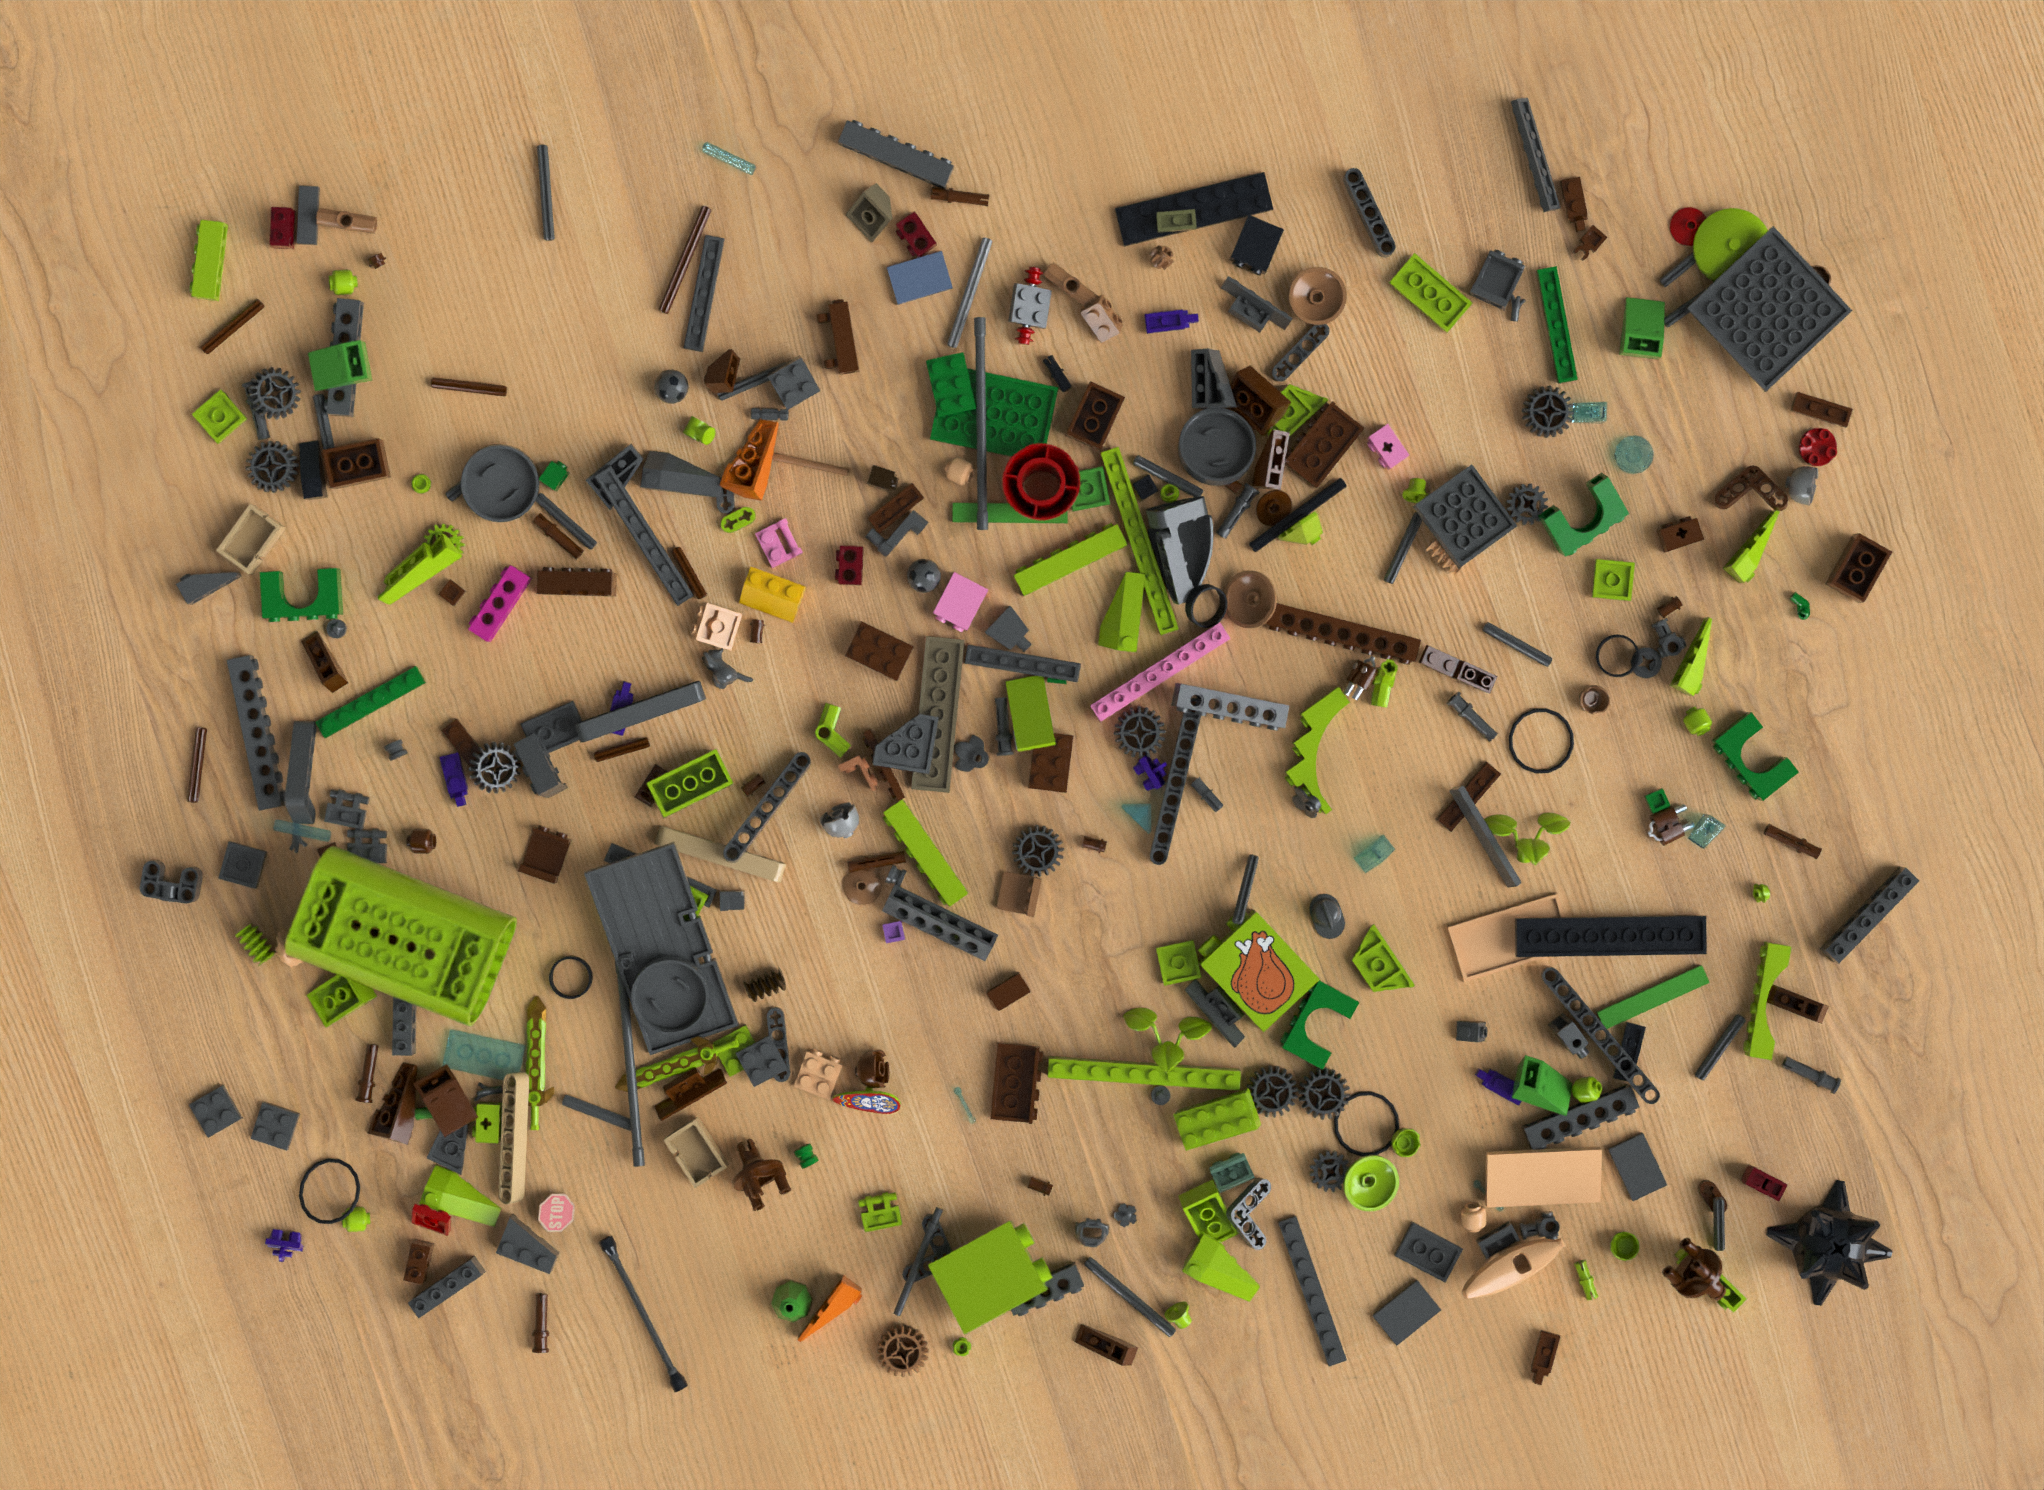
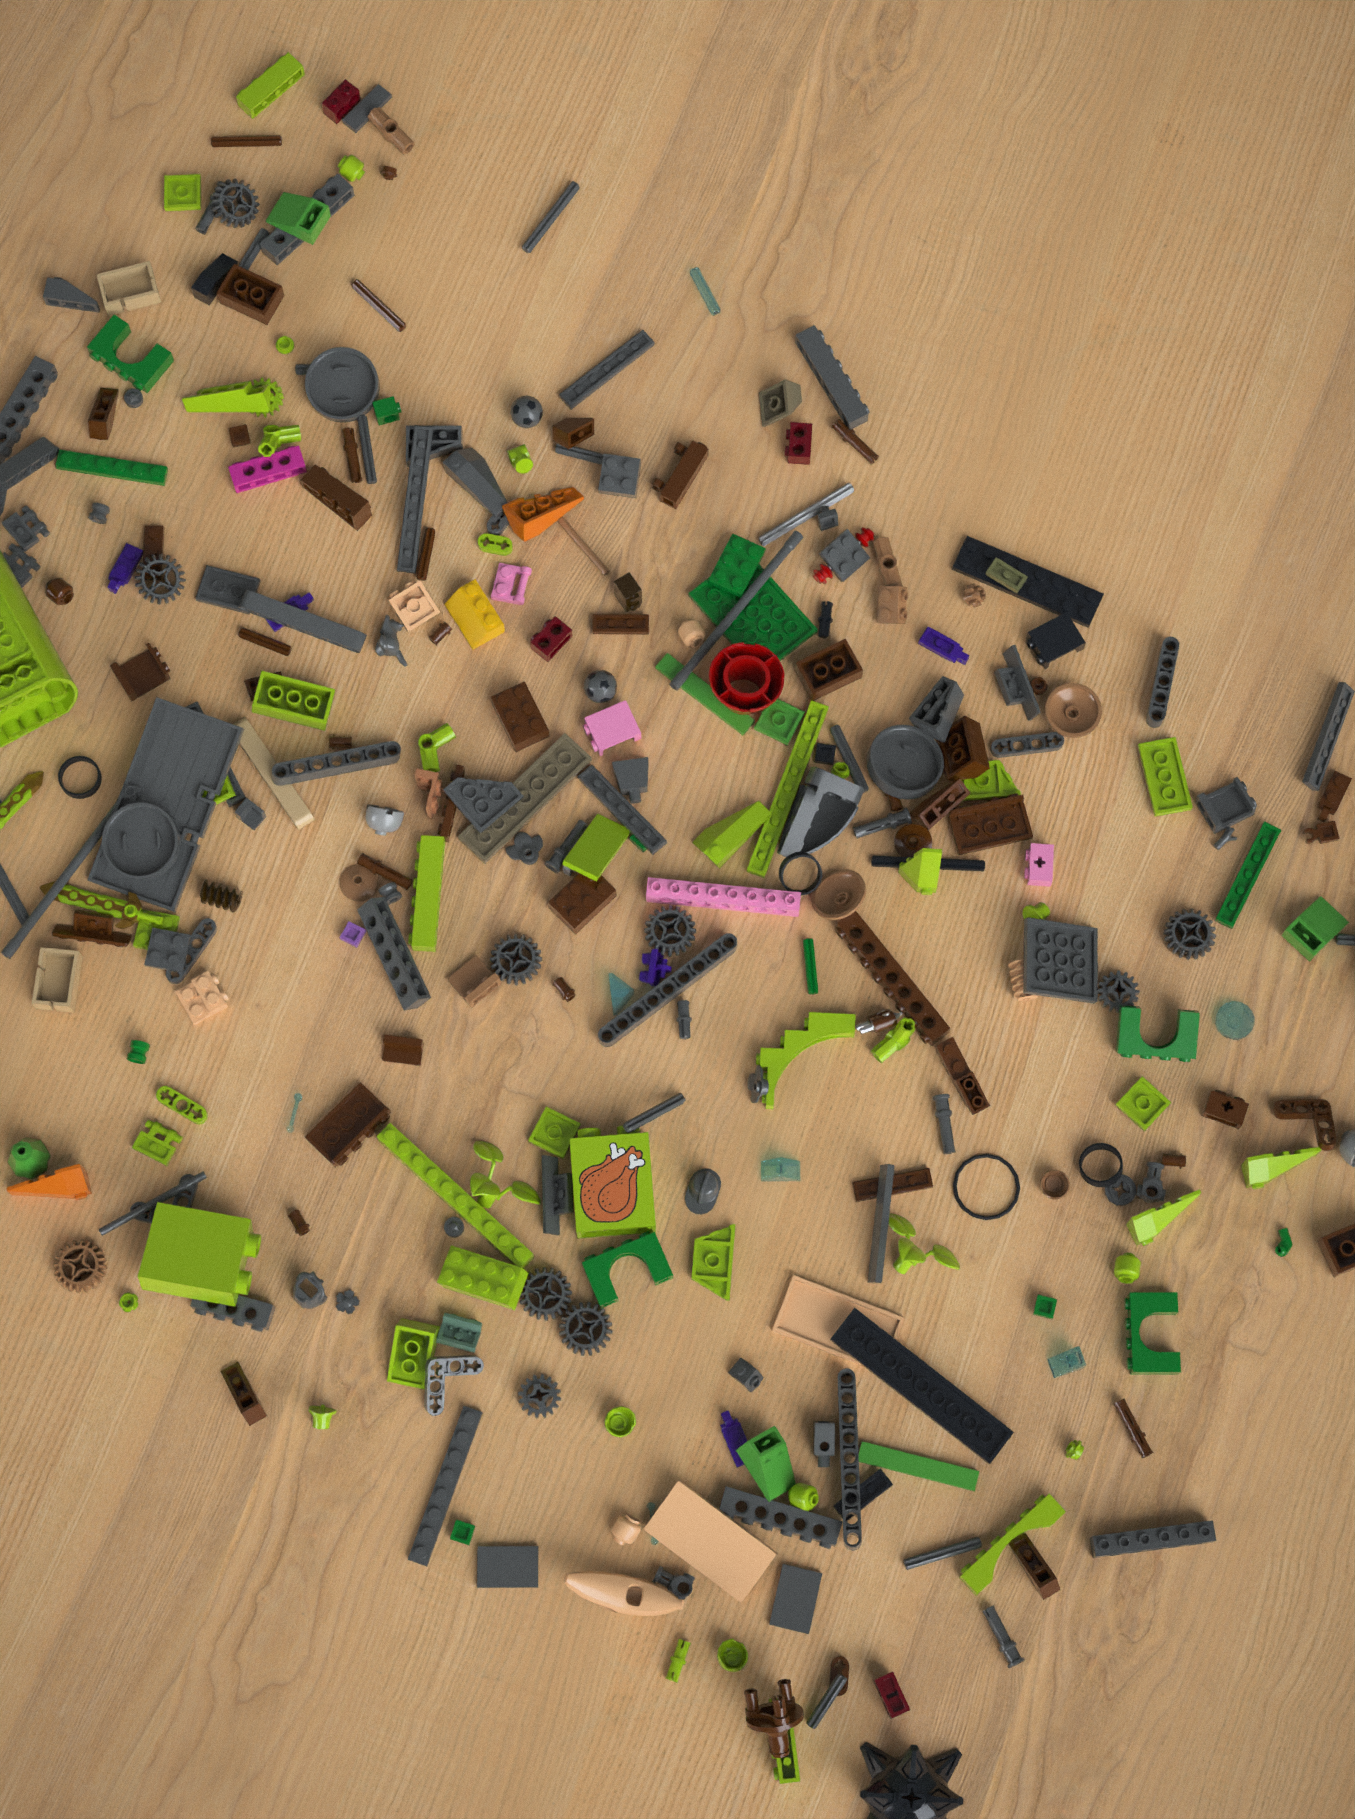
camera: 45 degrees right, 15 degrees down
(271, 458) = (189, 244): dark grey gear -> none
(482, 572) = (275, 436): none -> lime piece
(538, 766) = (191, 603): dark grey wedge -> none
(685, 259) = (612, 336): reddish brown axle -> none
(757, 1173) = (88, 1033): reddish brown piece -> none
(769, 414) = (583, 487): dark grey axle -> none
(860, 1176) = (191, 1117): none -> lime beam
(869, 1101) = (223, 1047): shield -> none
(872, 1069) = (247, 1024): reddish brown cylinder -> none
(913, 522) = (590, 646): dark grey beam -> none
(919, 277) = (777, 476): sand blue tile -> none
(990, 283) = (828, 518): none -> dark grey tile
(1070, 560) = (722, 761): lime brick -> none
(1129, 1296) = (295, 1371): dark grey axle -> none
(1217, 1268) = (383, 1400): lime wedge -> none
(1271, 673) = (810, 965): none -> green axle
(1275, 291) = (1041, 682): none -> reddish brown plate
(1277, 712) = (756, 950): brick -> none
(1353, 1315) = (462, 1532): none -> green plate
(1365, 1094) = (582, 1358): black piece -> none
(1380, 1187) = (568, 1444): lime dish -> none
(1403, 548) = (991, 952): dark grey axle -> none
(1428, 1252) = (566, 1530): dark grey tile -> none
(1497, 1239) = (631, 1565): dark grey hinge -> none
(1517, 644) = (1026, 1095): dark grey axle -> none
(1544, 1355) = (592, 1696): reddish brown hinge -> none
(1590, 412) = (1223, 960): clear light blue slope -> none
(1667, 825) = (1038, 1333): reddish brown piece -> none

